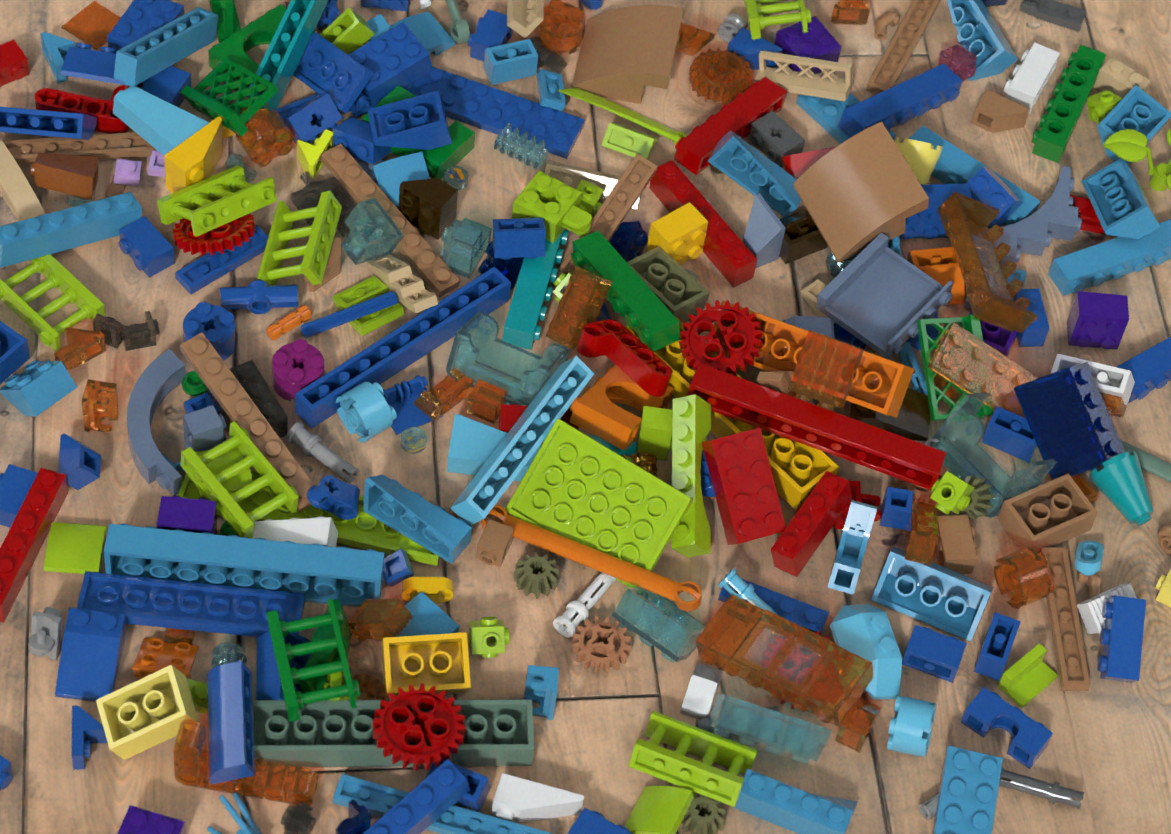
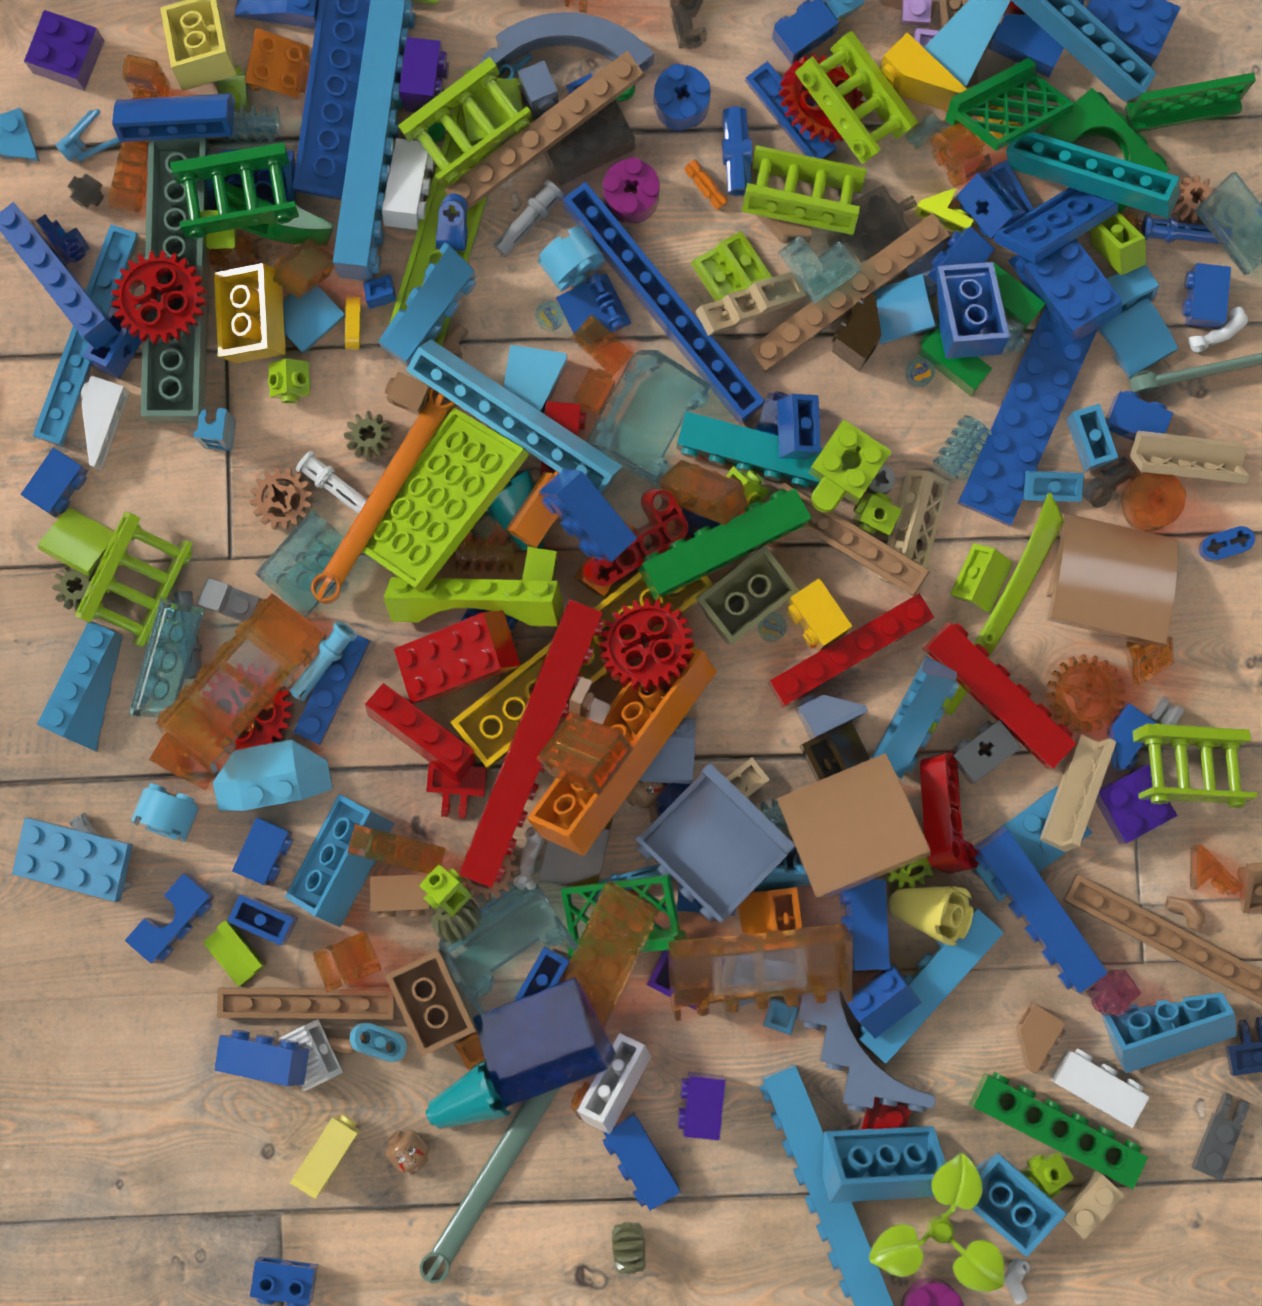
camera: 100 degrees right, 30 degrees up
(349, 314) = (710, 246): blue axle -> none
(464, 246) = (807, 375): clear light blue brick -> none
(614, 370) = (586, 515): none -> blue brick
(629, 240) = (815, 559): clear blue bracket -> none
(852, 547) = (385, 773): dark azure arch -> none
(896, 508) = (444, 831): blue brick -> none
(1036, 332) = (716, 1026): blue brick -> none
(1041, 789) = (97, 948): dark grey pin -> none

